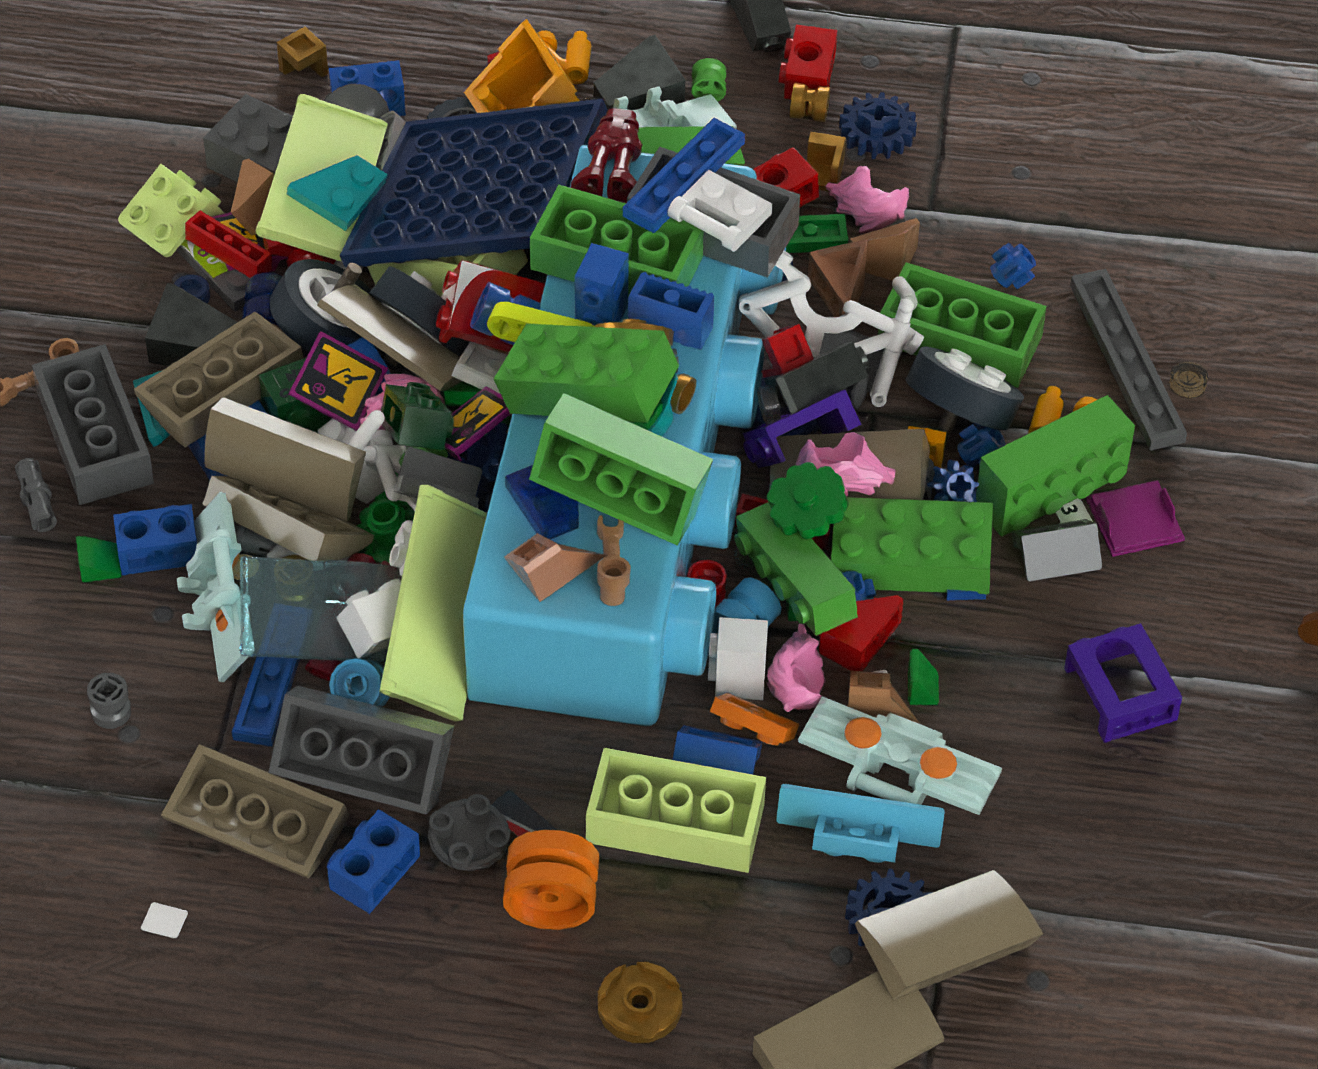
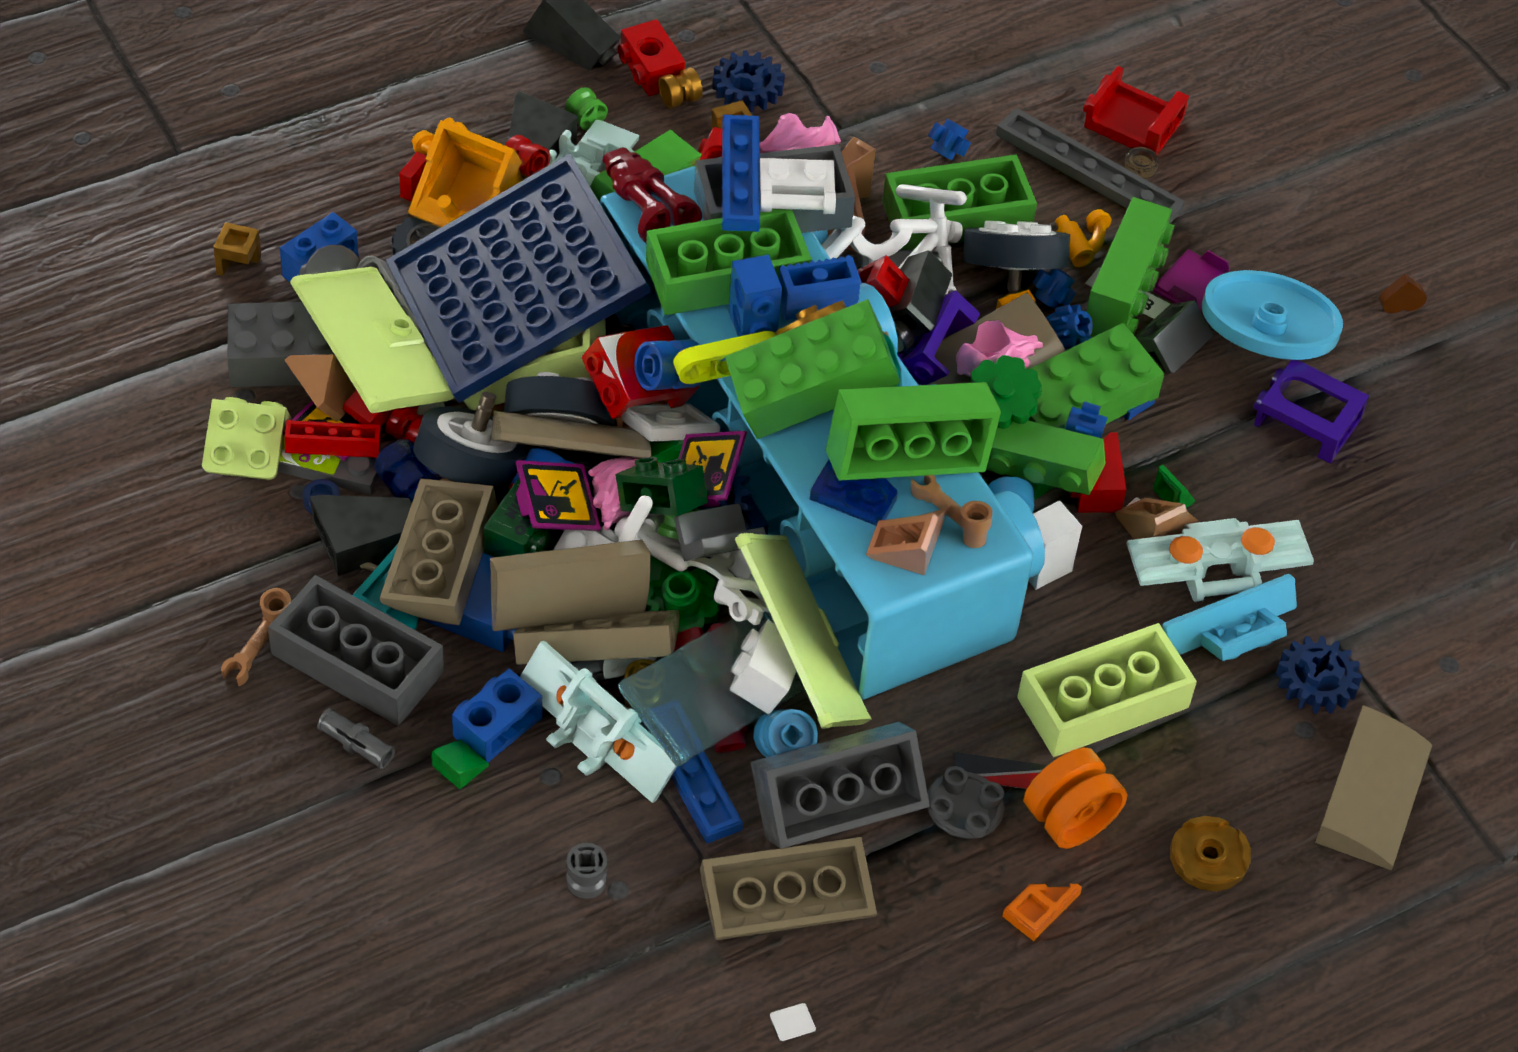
camera: 40 degrees left, 0 degrees up
(339, 190) = (405, 340): teal wing -> none
(380, 864) = (921, 869): blue brick -> none
(453, 955) = (1039, 906): none -> orange tile
(596, 84) = (533, 156): none -> red wheel
(716, 750) = (1085, 628): blue panel -> none
(740, 713) = (1103, 587): orange plate -> none
(797, 672) = (1095, 543): bright pink hair -> none
(864, 569) = (1086, 420): none -> blue gear
(947, 933) = (1379, 663): dark tan slope -> none
(1163, 576) = (1272, 315): none -> medium azure dish
(1222, 330) = (1132, 114): none -> red panel

